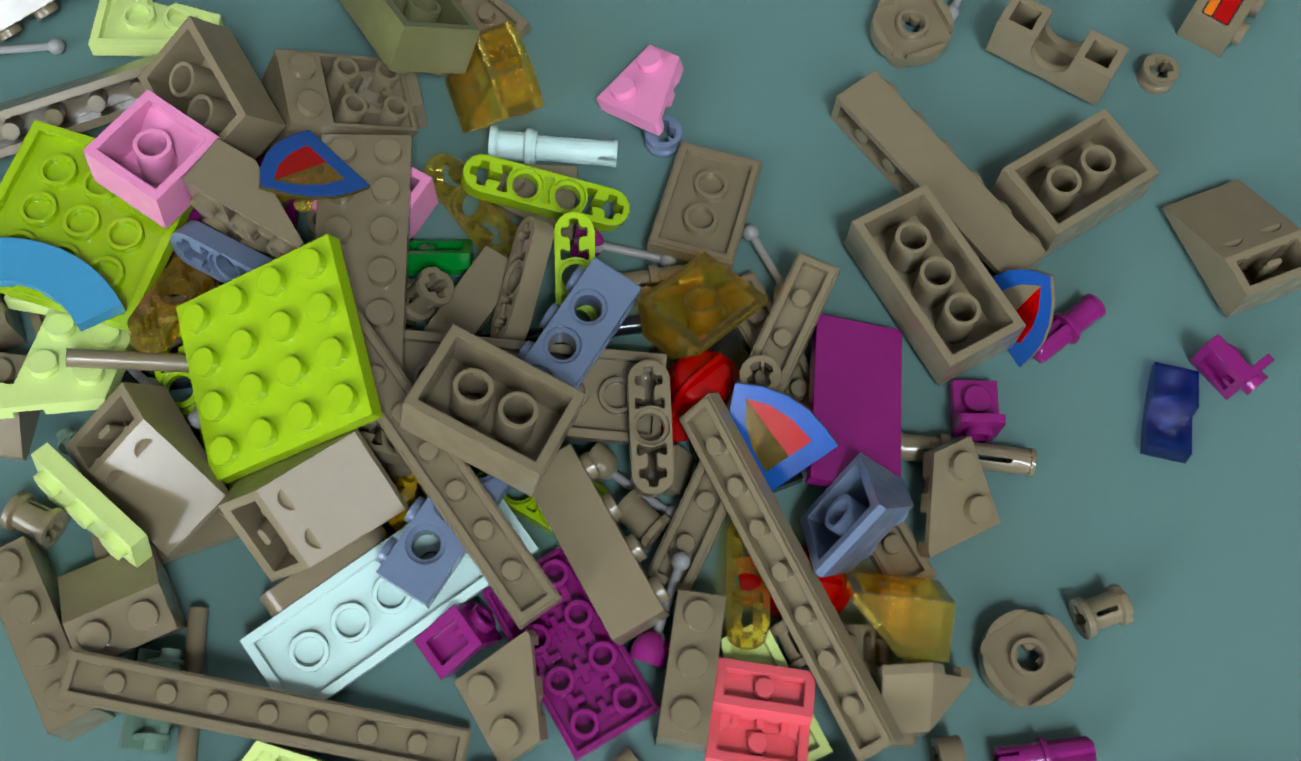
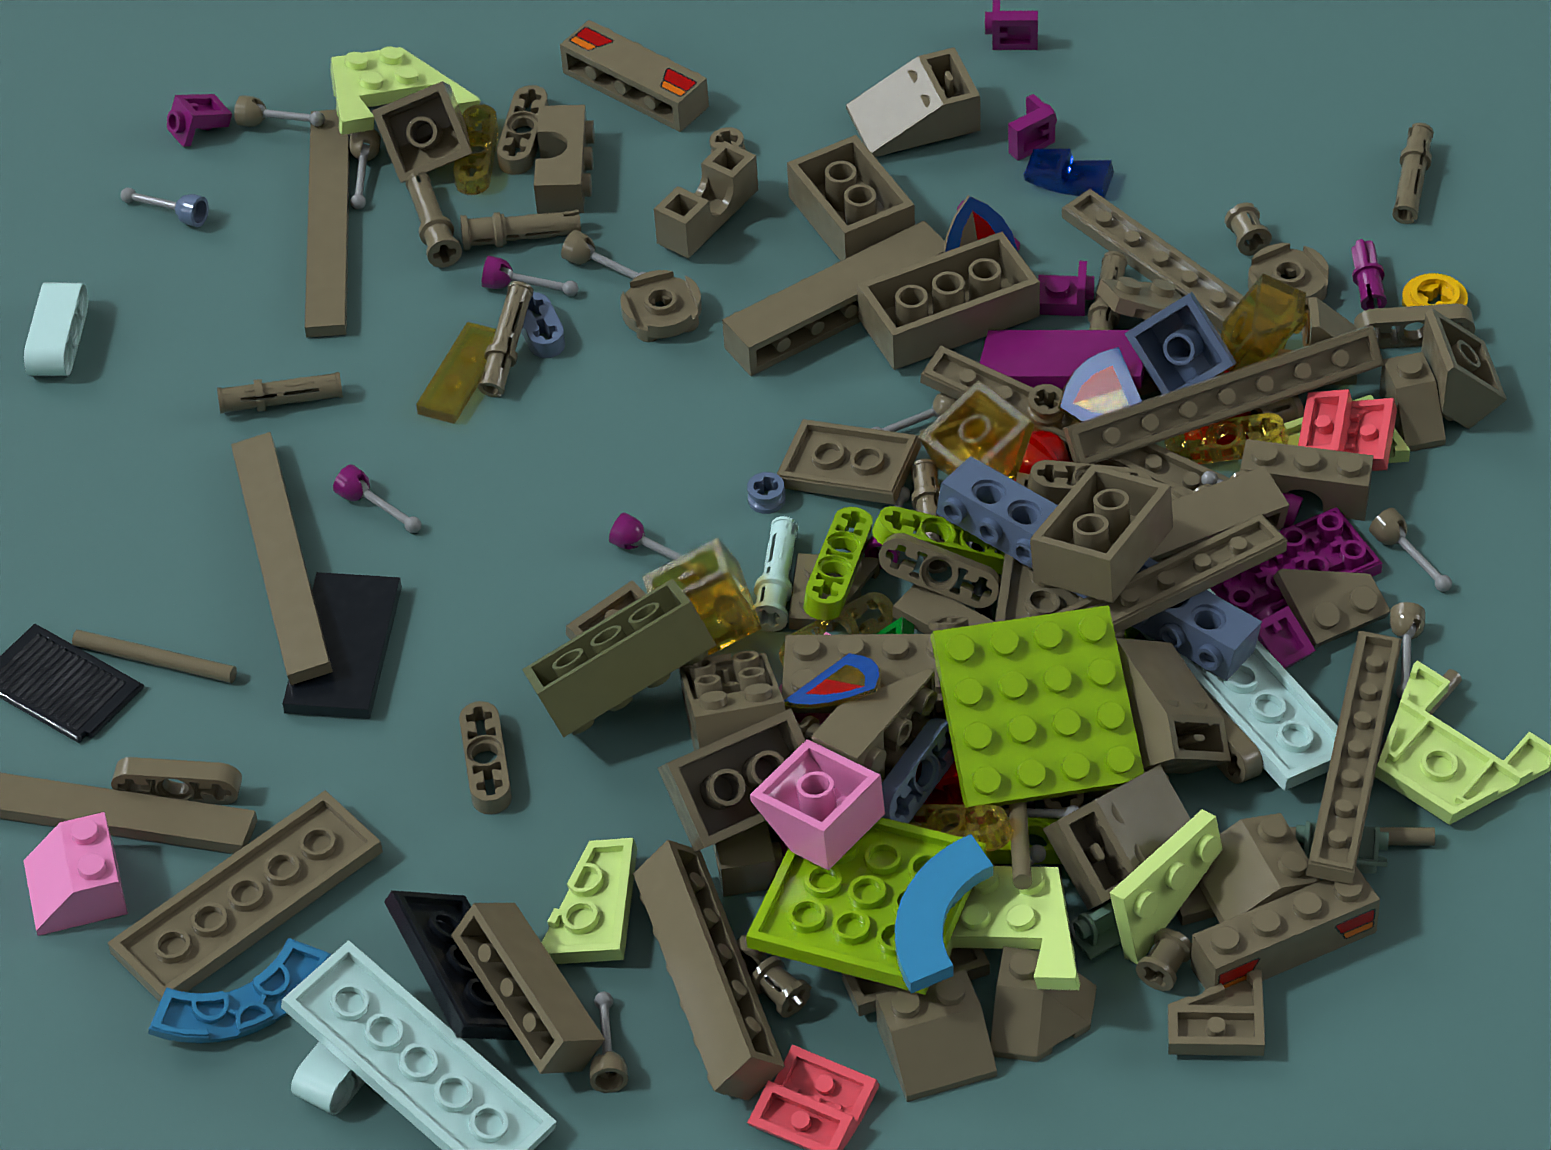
camera: 80 degrees left, 20 degrees down
(602, 22) = (629, 534): none -> magenta hinge
(644, 89) = (717, 498): bright pink wing -> none
(1040, 515) = (1150, 253): none -> dark tan tile

